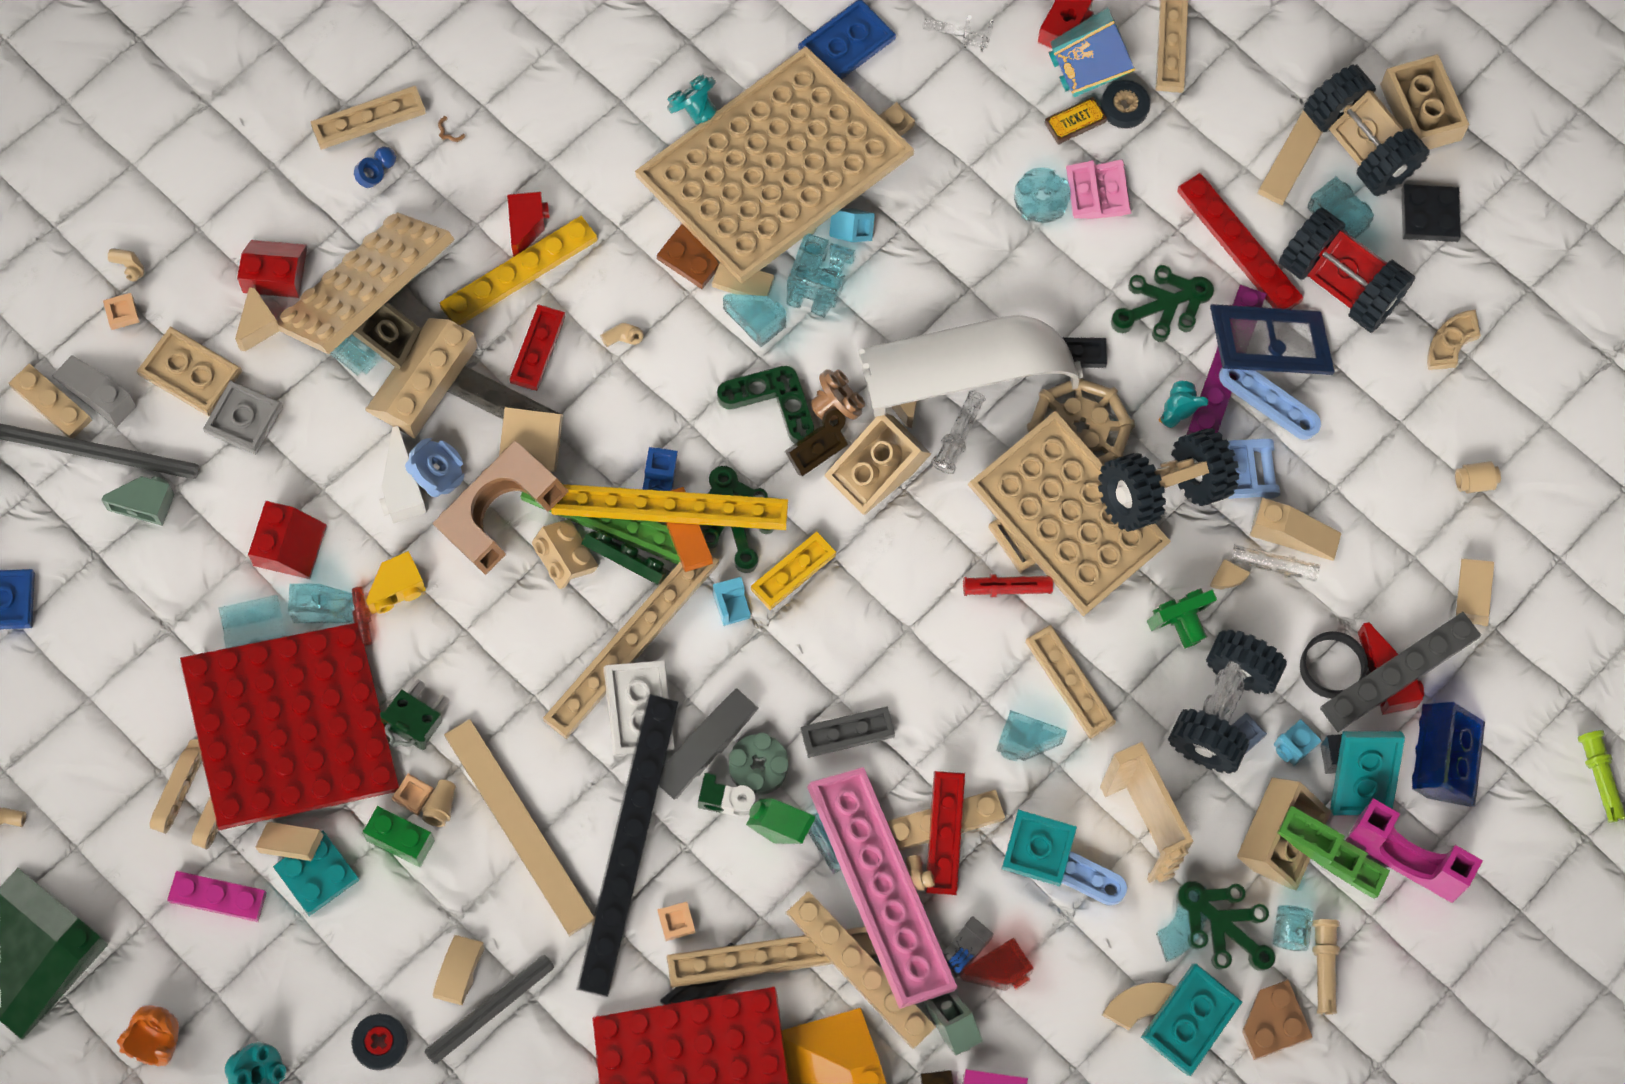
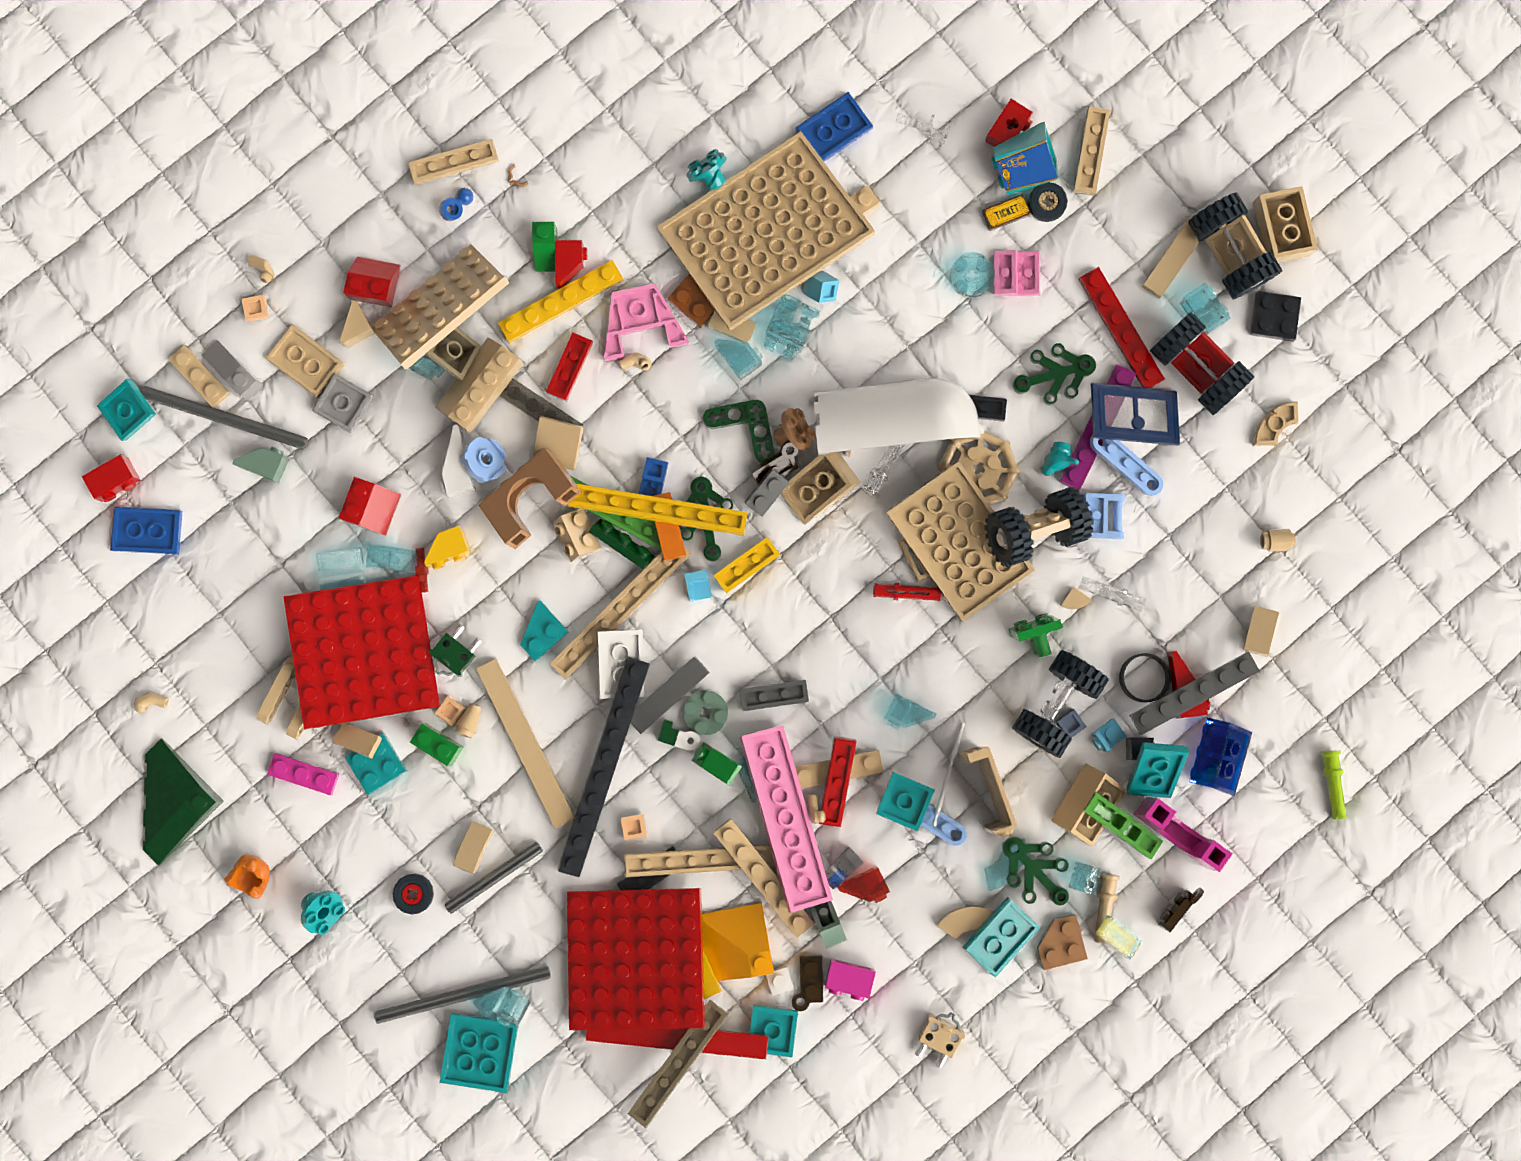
camera: 10 degrees right, 15 degrees up
(493, 205) = (543, 241): none -> green slope
(529, 681) = (542, 632): none -> teal wing
(621, 273) = (637, 311): none -> bright pink wing
(810, 476) = (766, 492): none -> plate
(1070, 681) = (945, 671): tan tile -> none
(1091, 812) = (948, 773): none -> white piece
(1294, 530) = (1130, 569): tan slope -> none
(1350, 1002) = (1119, 937): none -> clear light blue tile
(1428, 949) = (1183, 902): none -> dark brown hinge

